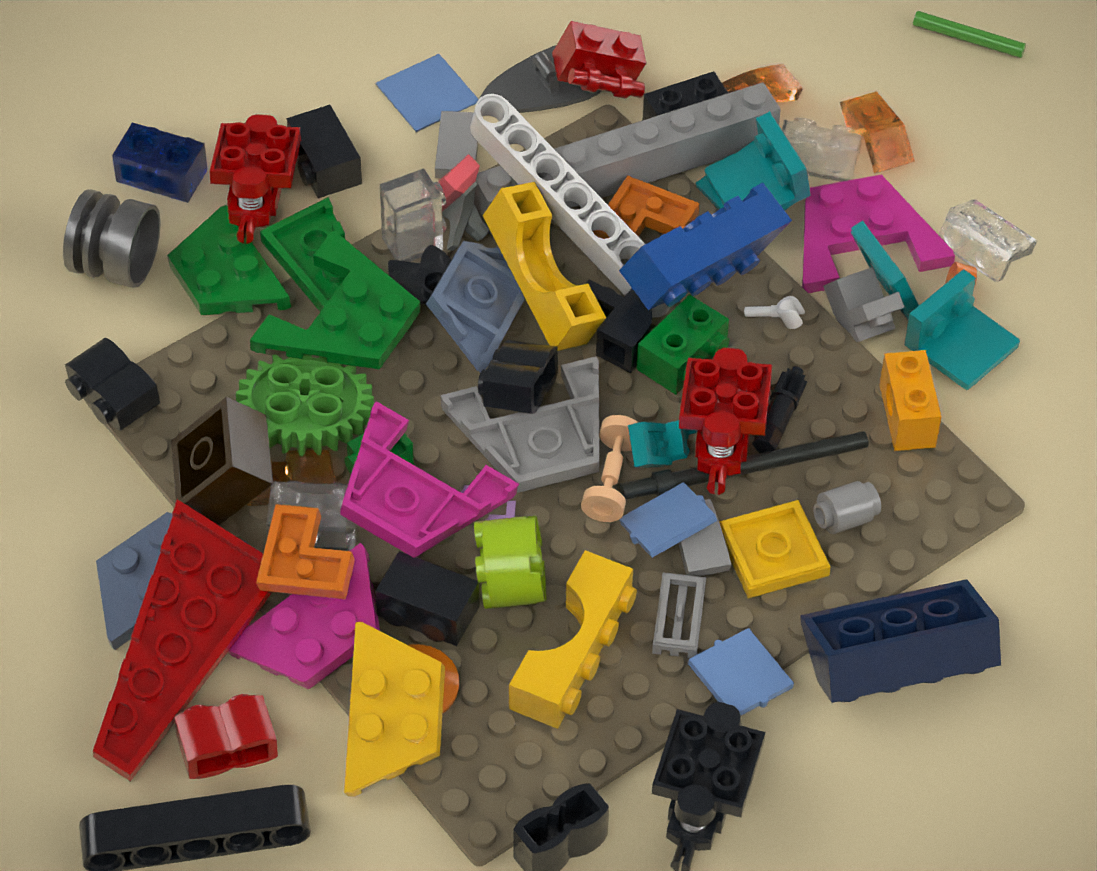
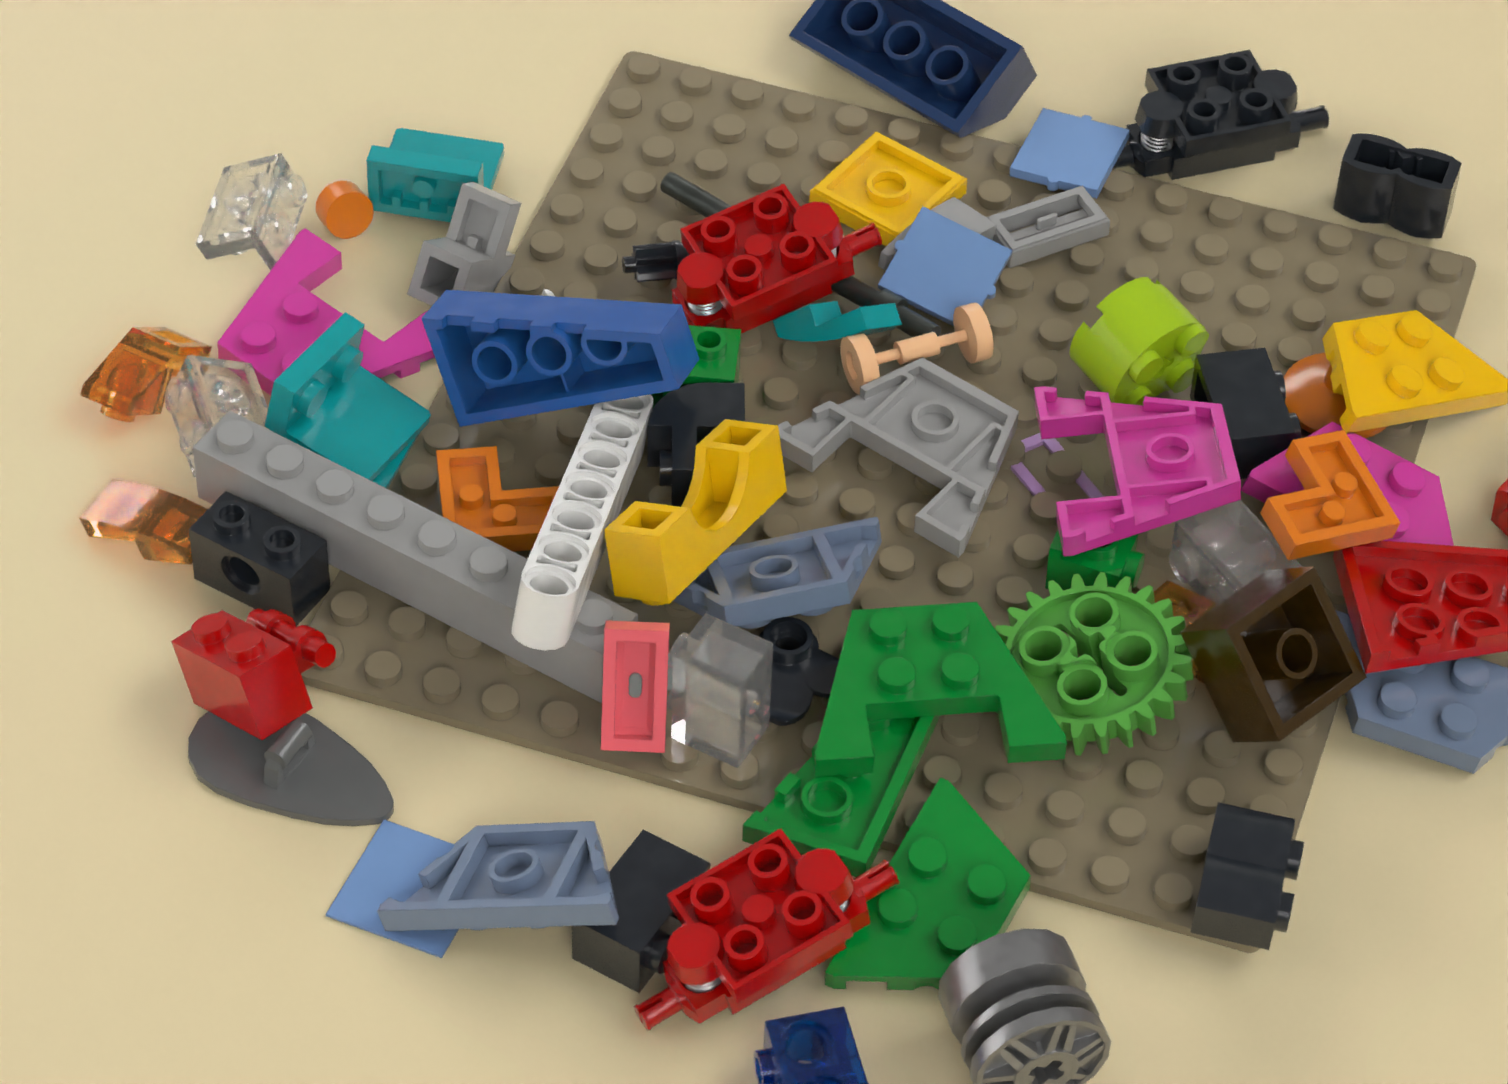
camera: 125 degrees left, 5 degrees down
(375, 103) = (512, 880): none -> sand blue wing
(454, 141) = (496, 788): light grey tile -> none
(519, 376) = (872, 471): black brick -> none
(550, 680) = (1237, 266): yellow arch -> none
(847, 506) = (786, 146): light grey brick -> none
(884, 267) = (404, 243): teal tile -> none
(910, 400) = (594, 147): light orange brick -> none

